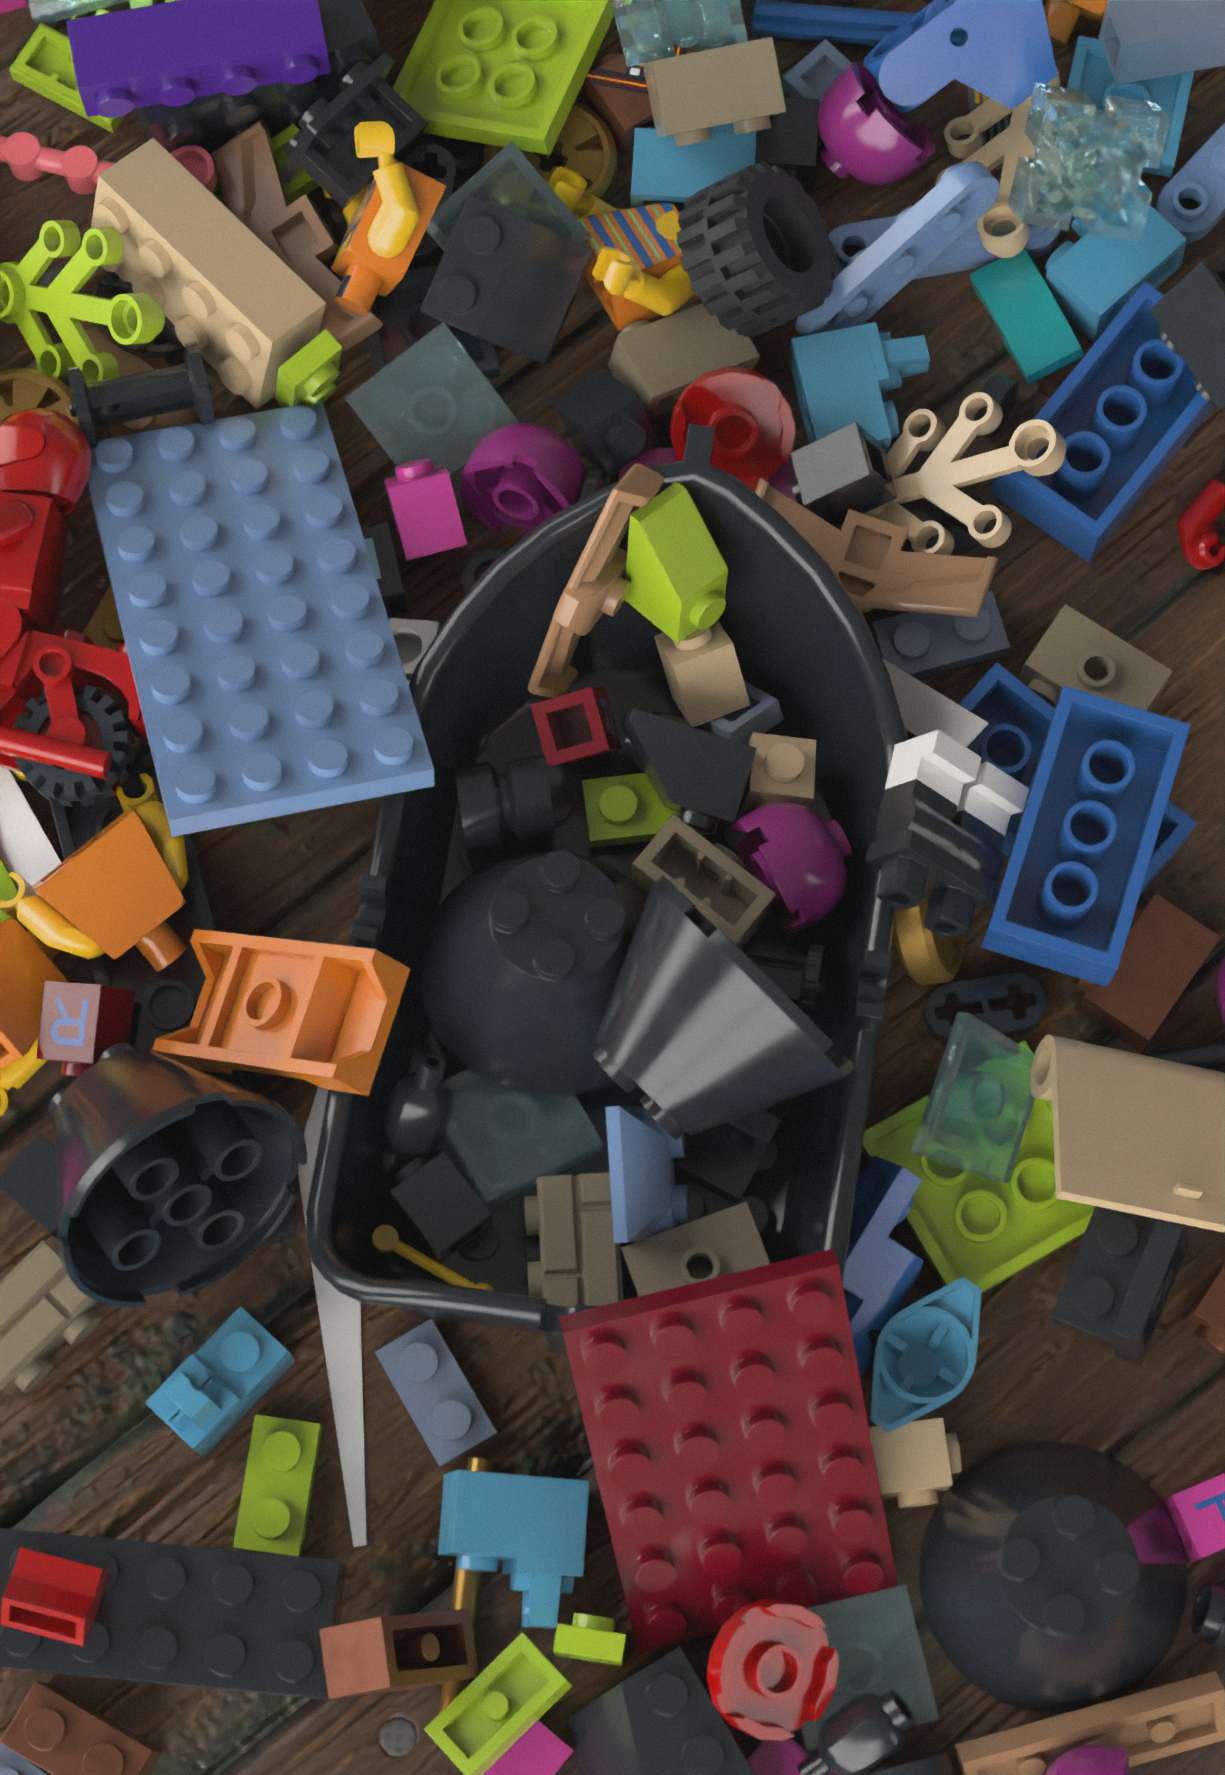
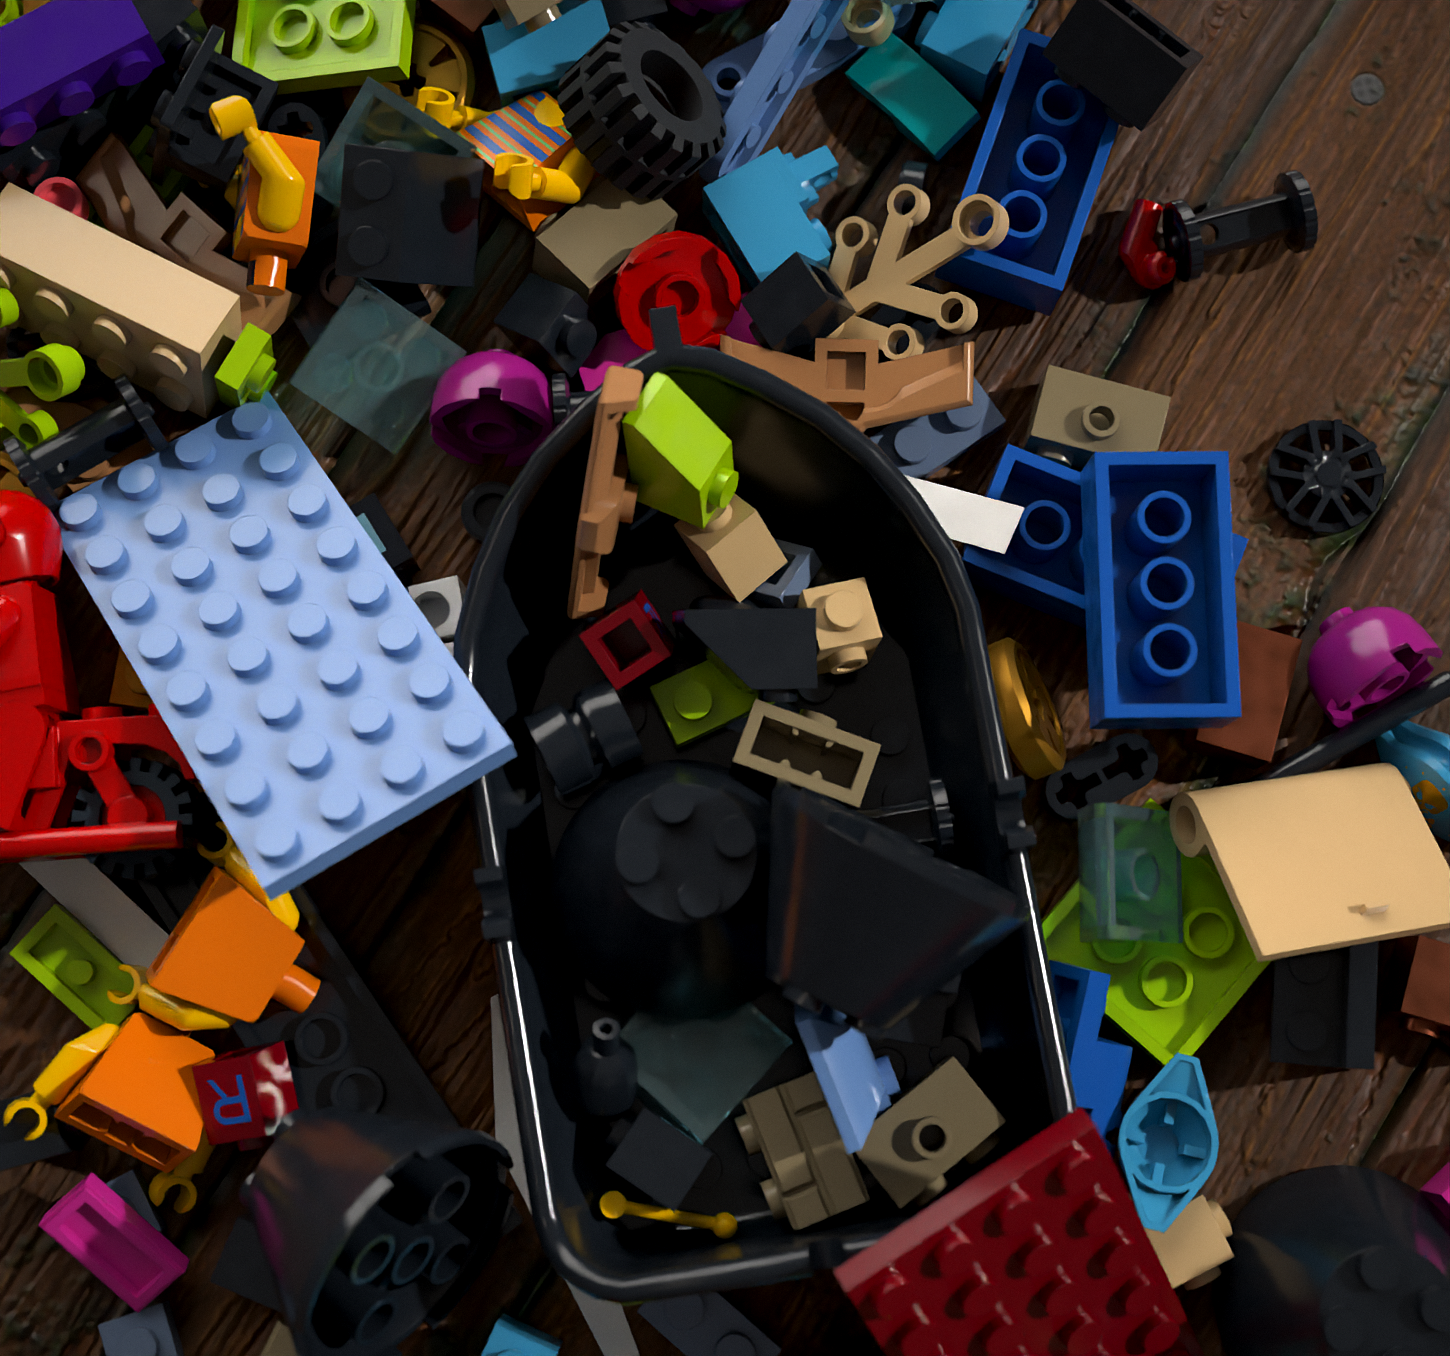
camera: 25 degrees left, 5 degrees up
(289, 1010) = (448, 1026): orange piece -> none
(424, 509) = (404, 467): dark pink brick -> none
(796, 859) = (884, 702): magenta cylinder -> none
(942, 830) = (1024, 634): black hips -> none

